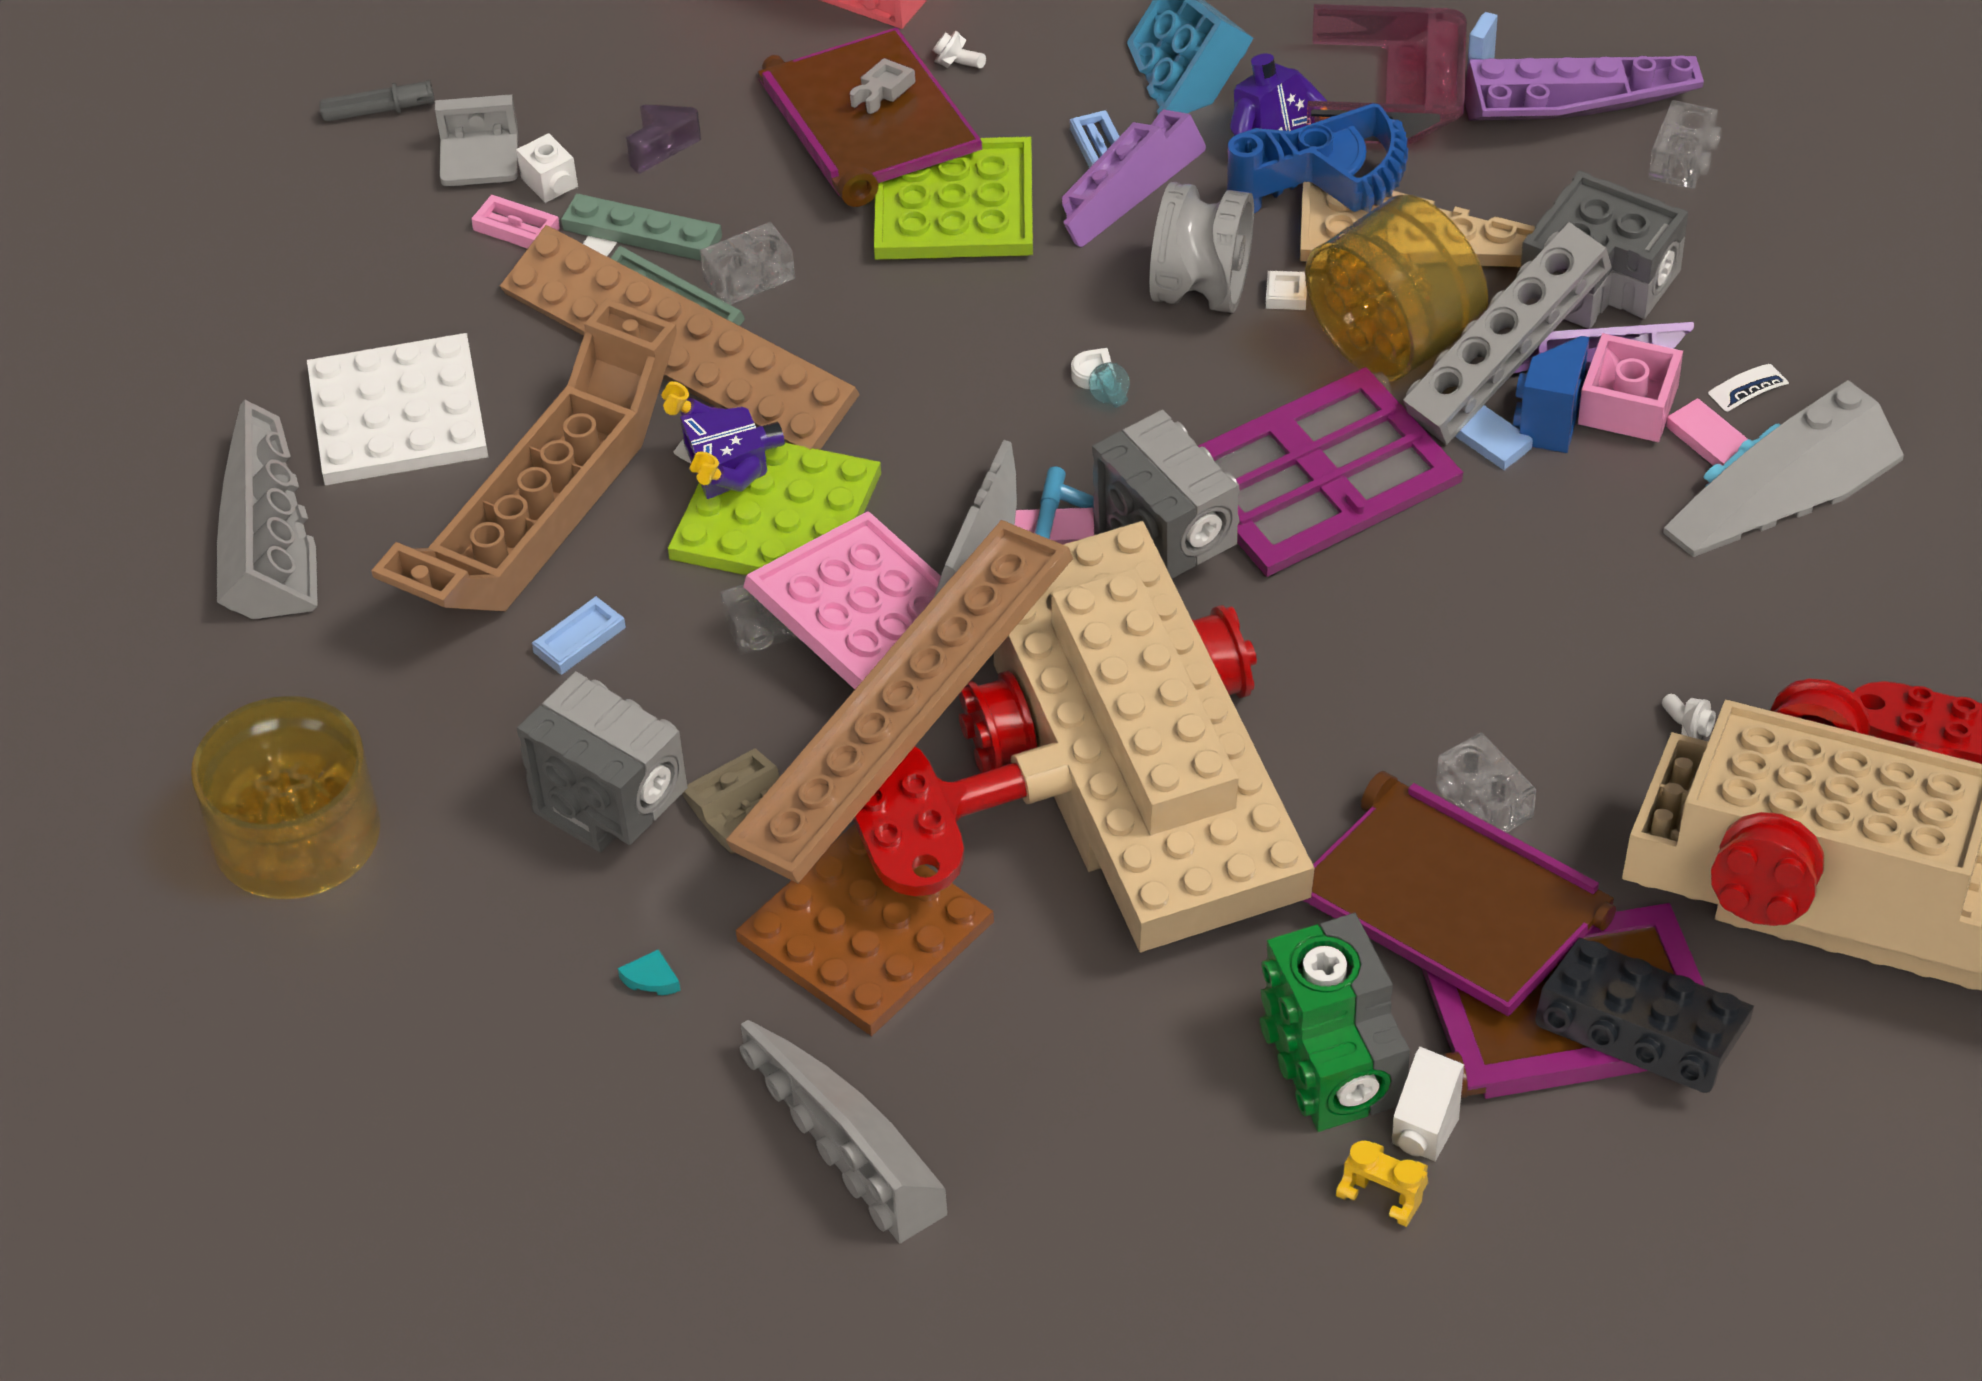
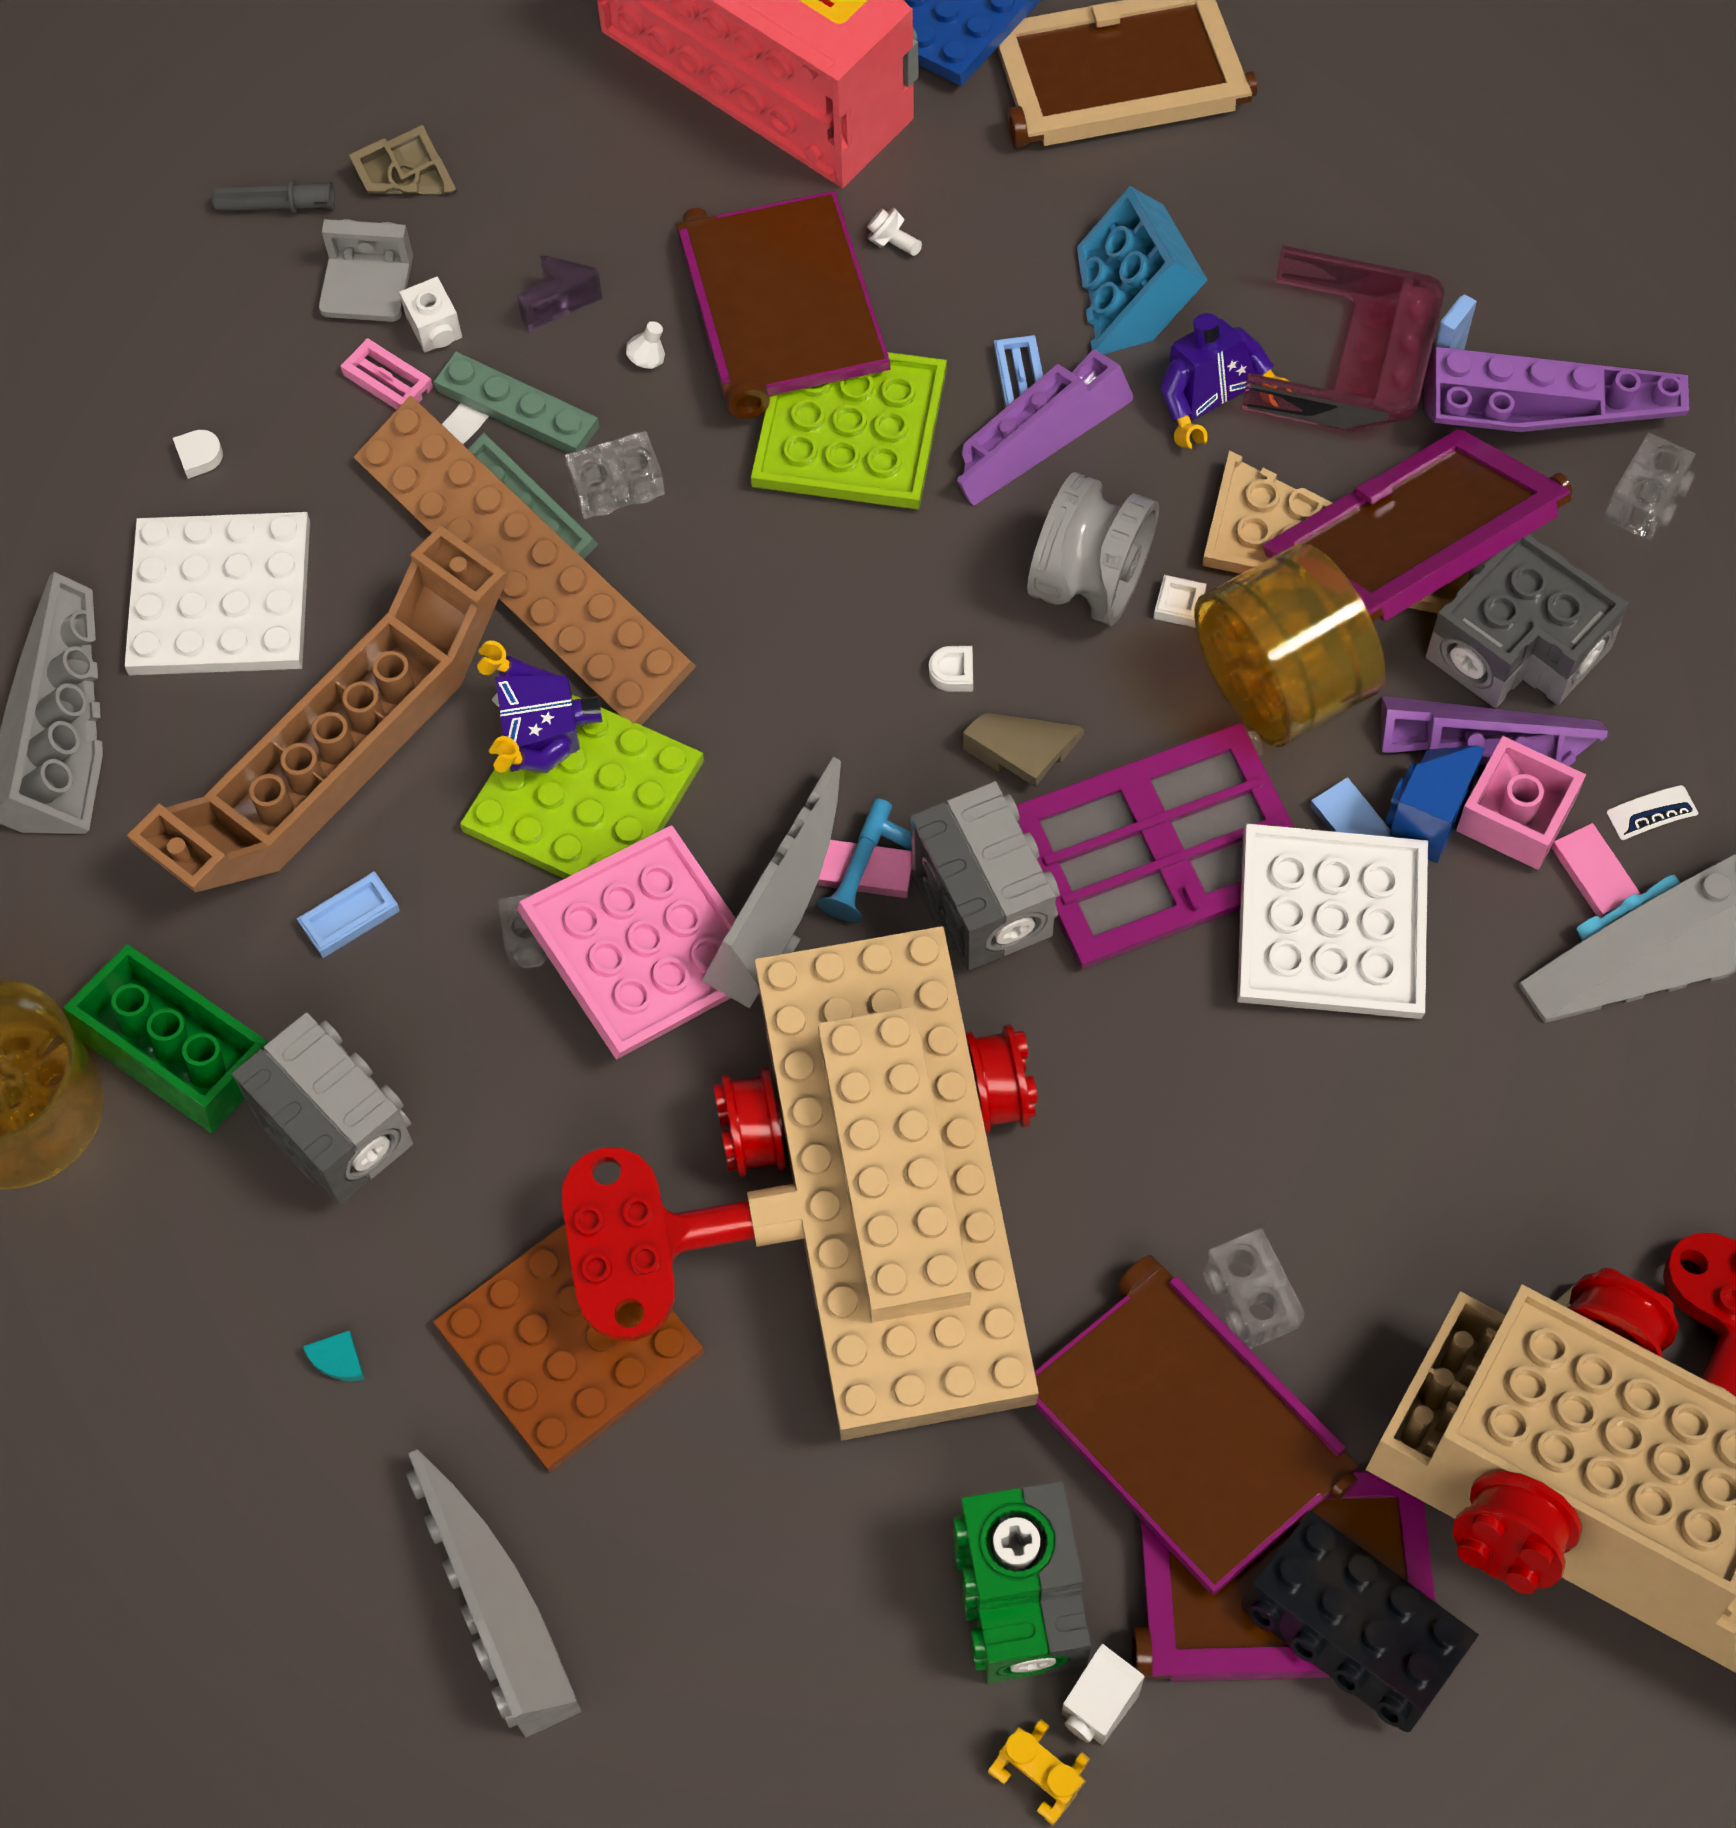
camera: 10 degrees right, 15 degrees up
(351, 303) = (198, 452): none -> white tile
(439, 746) = (164, 1036): none -> green brick
(492, 62) = (402, 166): none -> dark tan slope
(730, 793) = (475, 1156): dark tan slope -> none
(753, 165) = (646, 348): none -> white rock
(883, 81) = (799, 269): light grey plate -> none
(899, 701) = (637, 1114): medium nougat plate -> none
(1109, 383) = (964, 695): clear light blue plate -> none
(1189, 410) = (1020, 744): none -> dark tan slope
(1321, 154) = (1205, 442): blue arm -> none
(1486, 500) = (1333, 921): none -> white plate
(1512, 175) = (1429, 520): none -> door
(1558, 294) = (1424, 721): light grey brick -> none
(1695, 716) = (1497, 1240): white plate -> none

